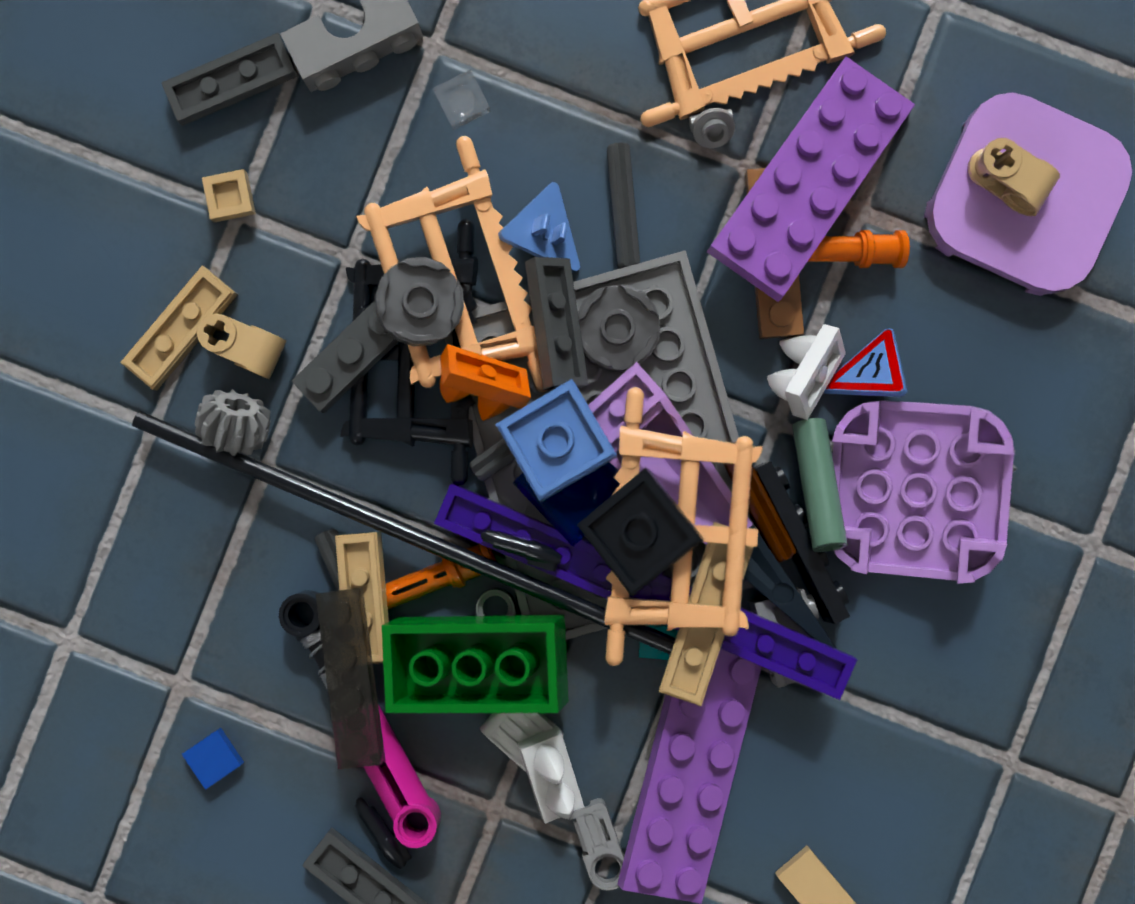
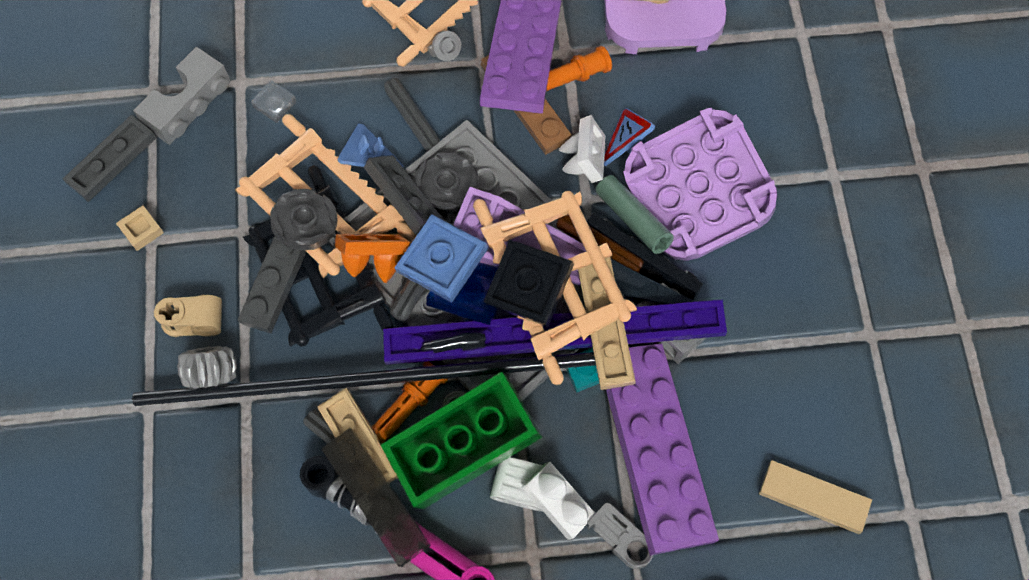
camera: 30 degrees left, 20 degrees down
(176, 328) = (138, 333): tan tile -> none

